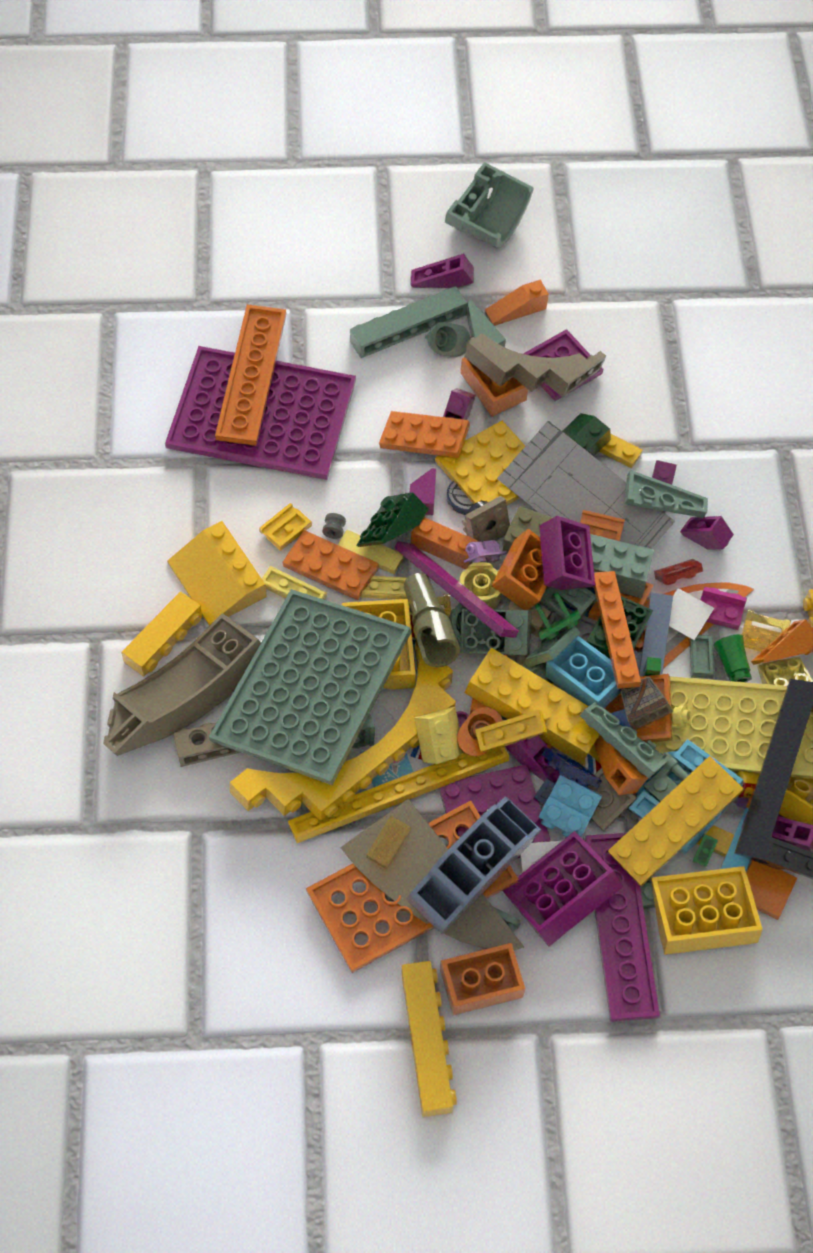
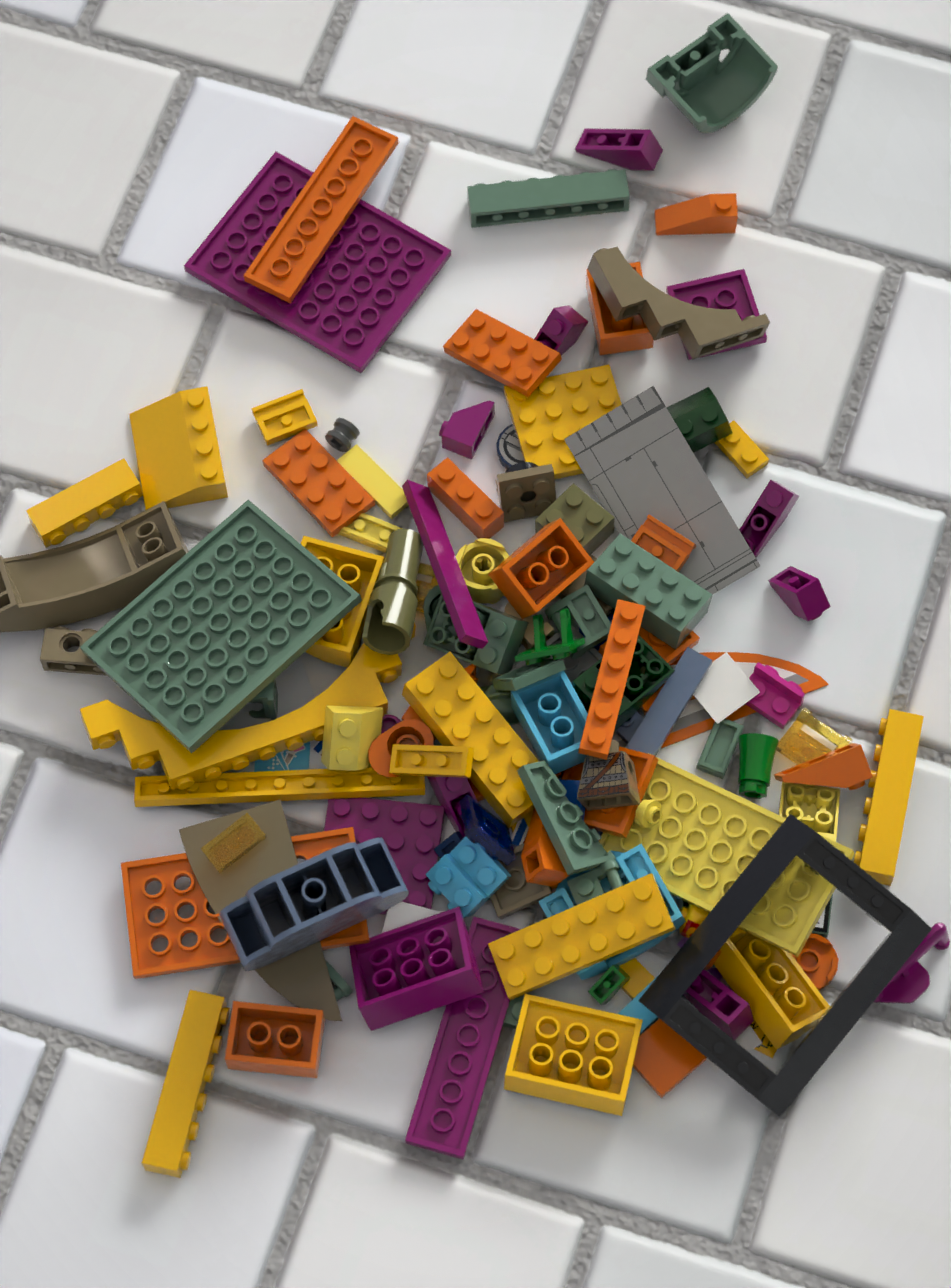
camera: 25 degrees right, 5 degrees up
(282, 583) = (253, 487): light yellow tile -> none
(393, 519) = (415, 450): dark green slope -> none
(448, 339) = (584, 235): sand green piece -> none
(480, 324) = (635, 239): sand green slope -> none
(484, 551) = (495, 528): lavender hinge -> none
(566, 554) = (593, 566): magenta slope -> none
(652, 666) = (641, 740): green piece -> none
(658, 495) = (749, 525): sand green wing -> none
(672, 573) = (739, 630): clear red plate -> none

